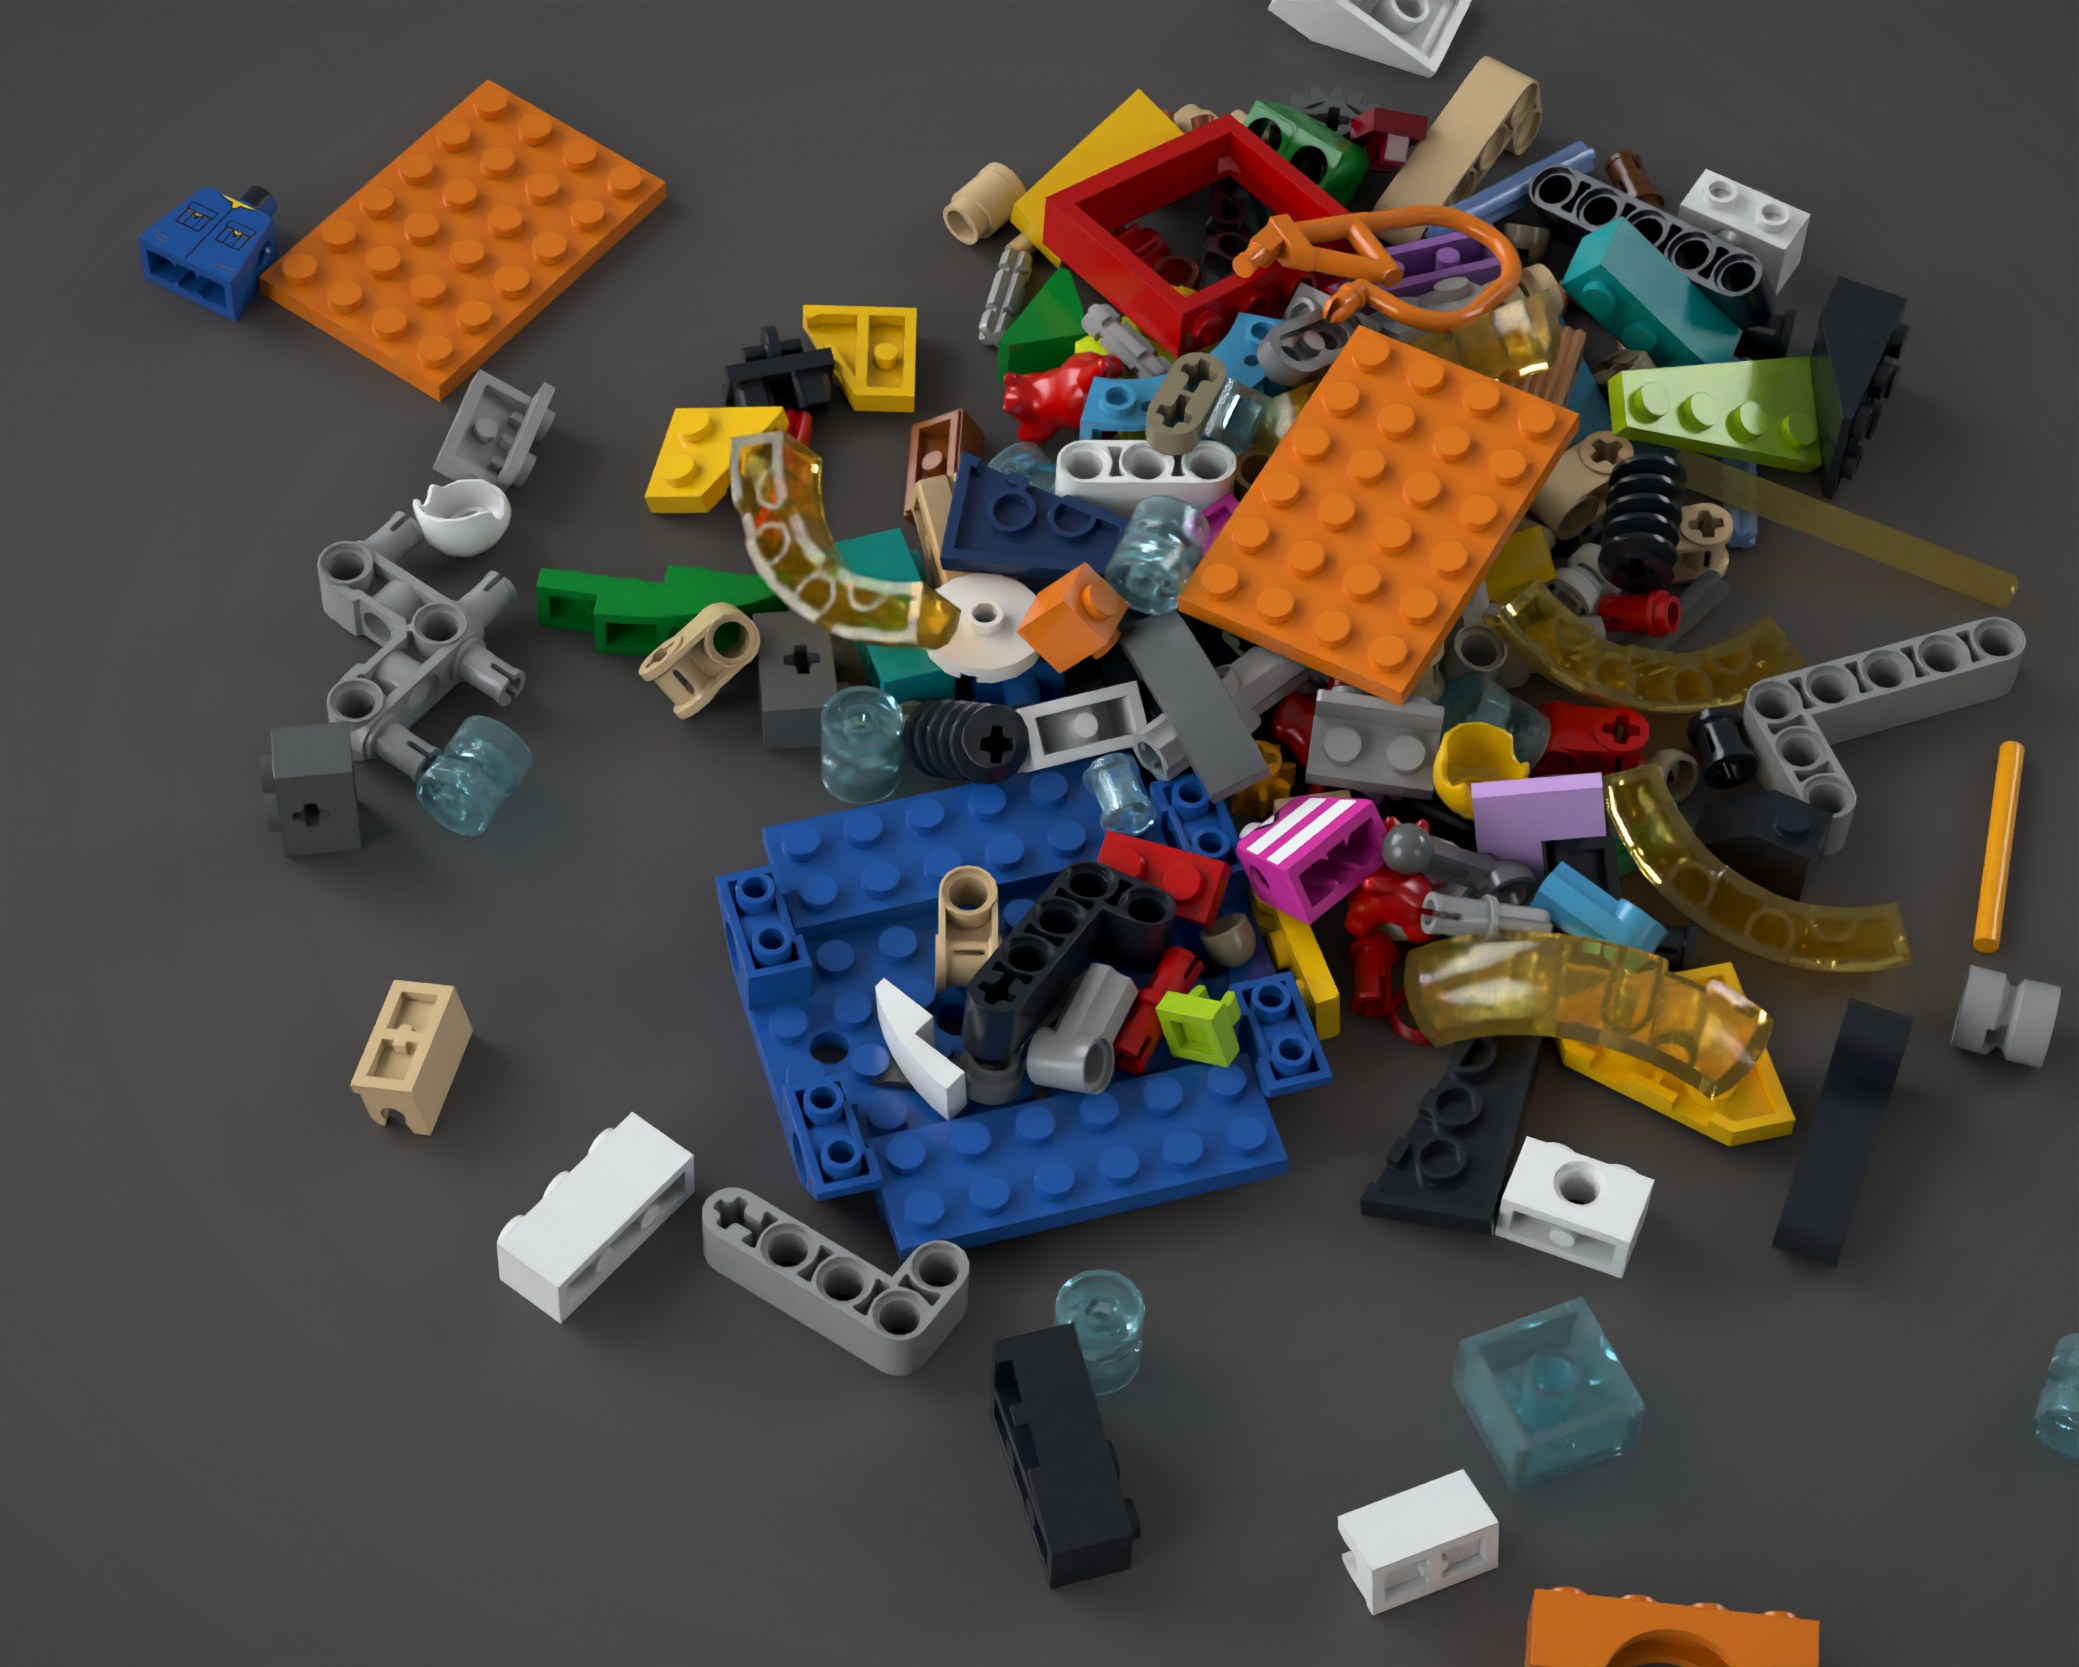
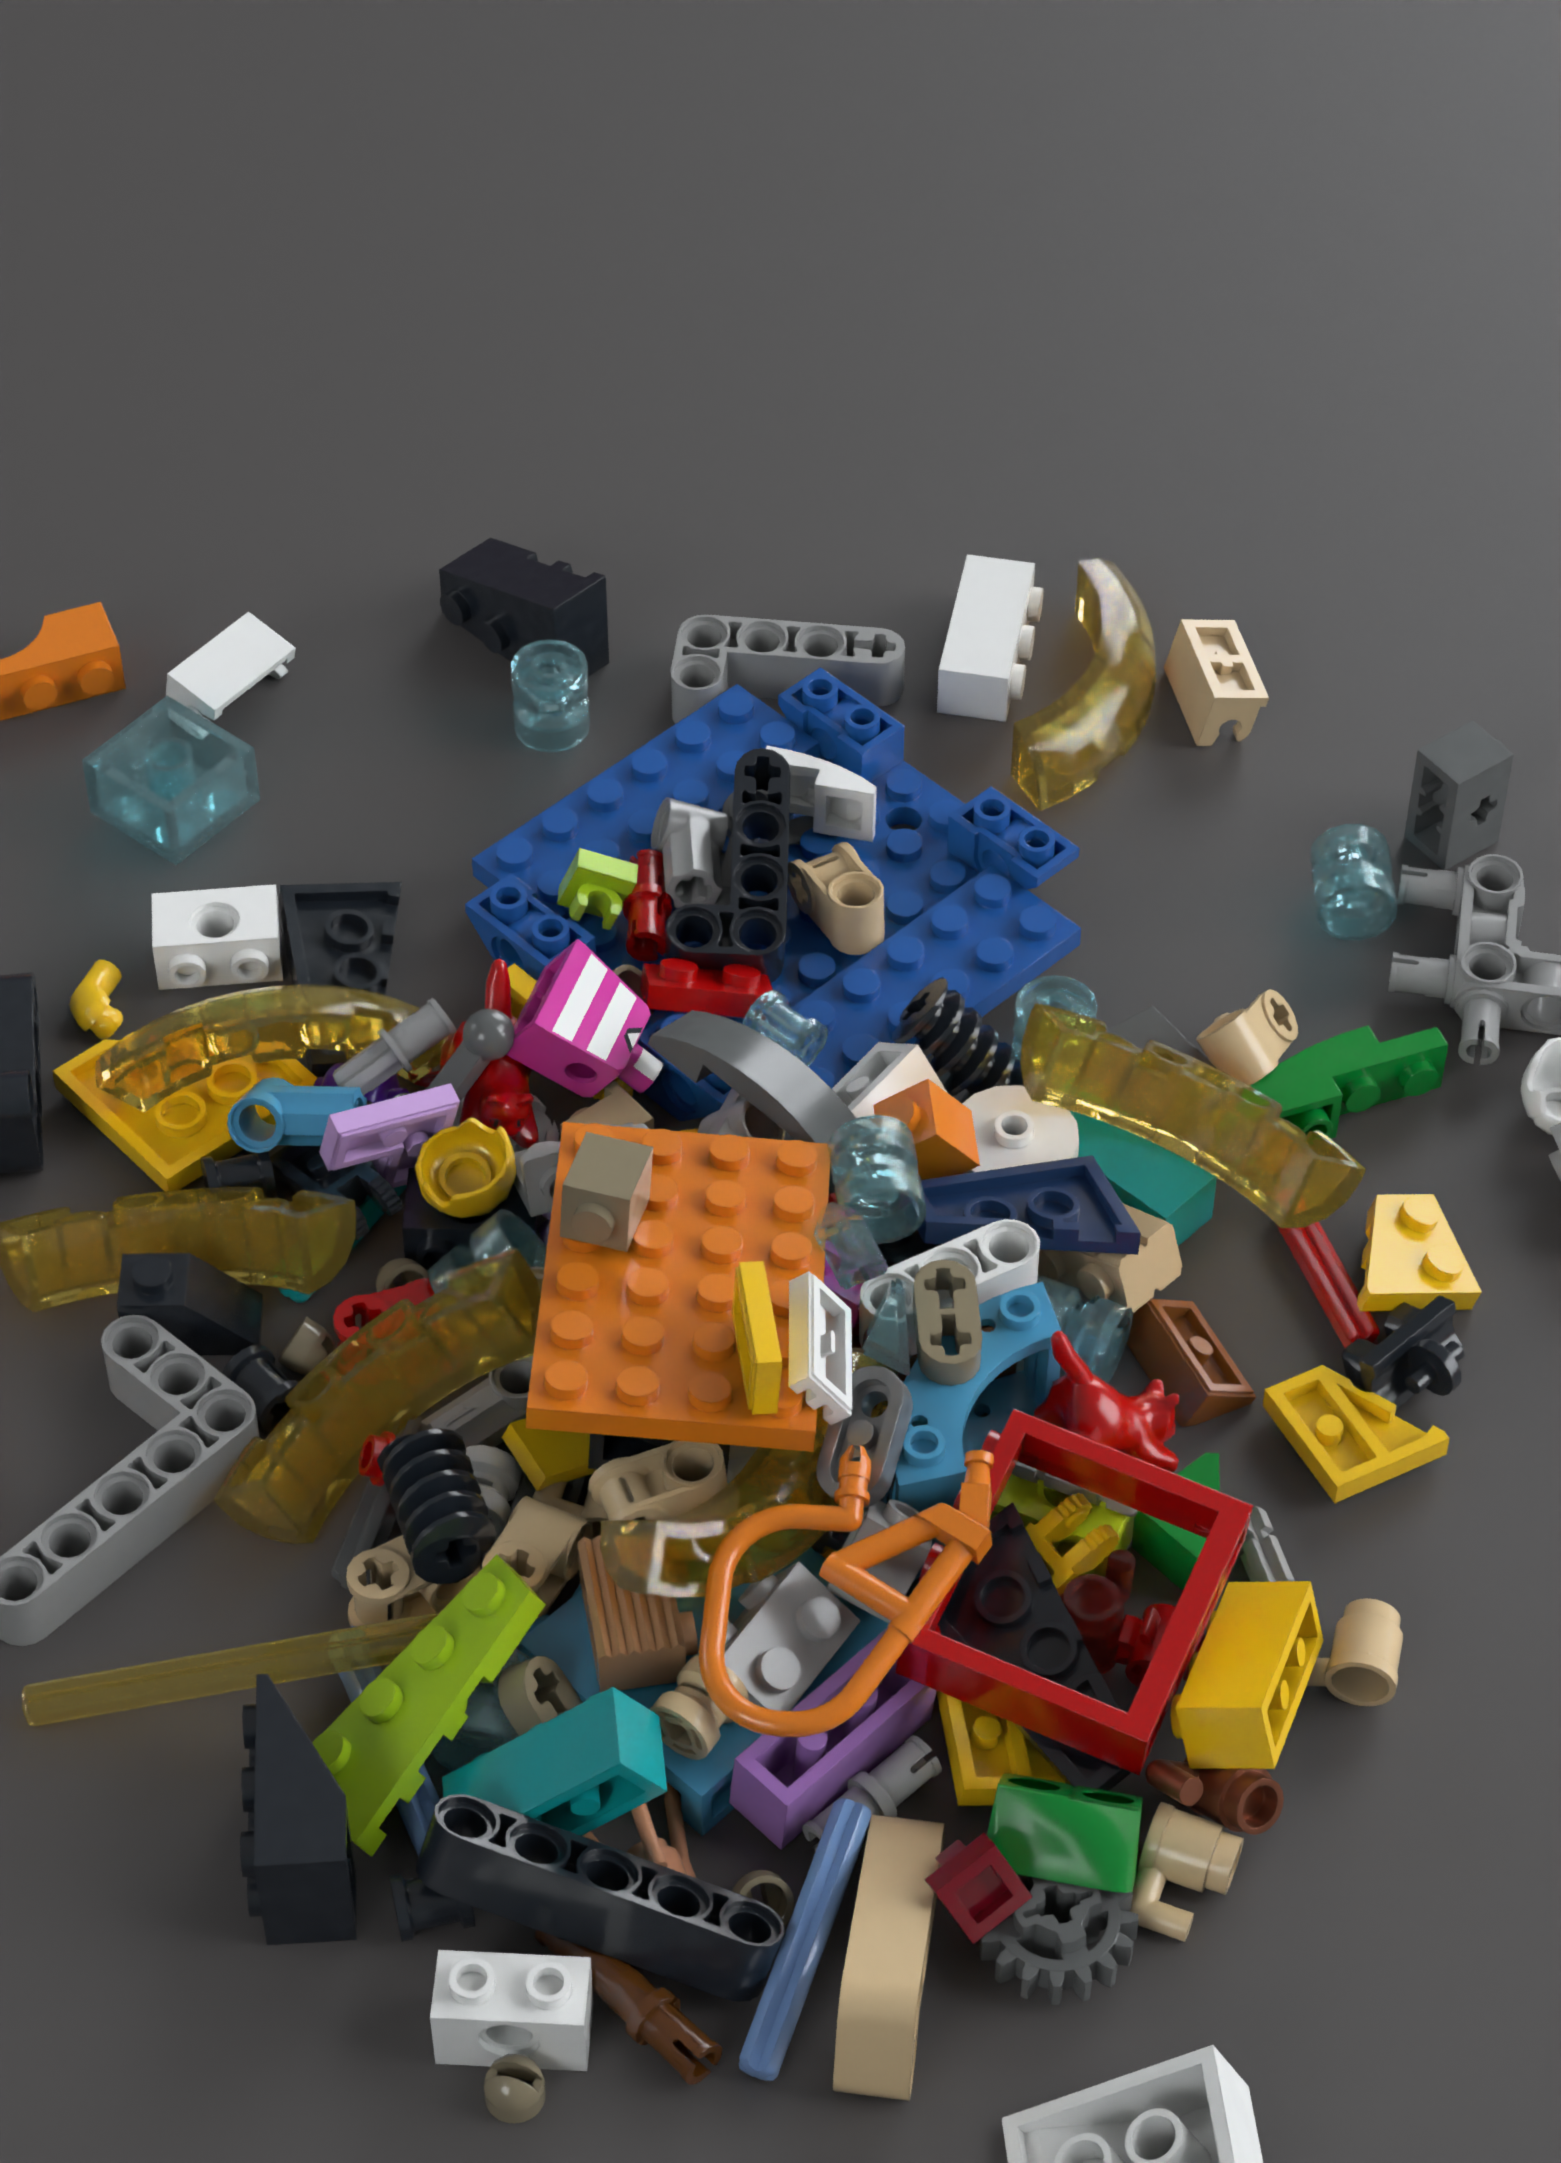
camera: 155 degrees right, 5 degrees down
(513, 1103) = (1106, 709): none -> clear yellow brick
(1223, 495) = (848, 1245): none -> clear light blue slope
(1317, 376) = (820, 1347): none -> white tile
(1376, 364) = (756, 1338): none -> yellow tile
(1423, 541) = (606, 1191): none -> dark tan brick
(1726, 1205) = (91, 1000): none -> yellow arm

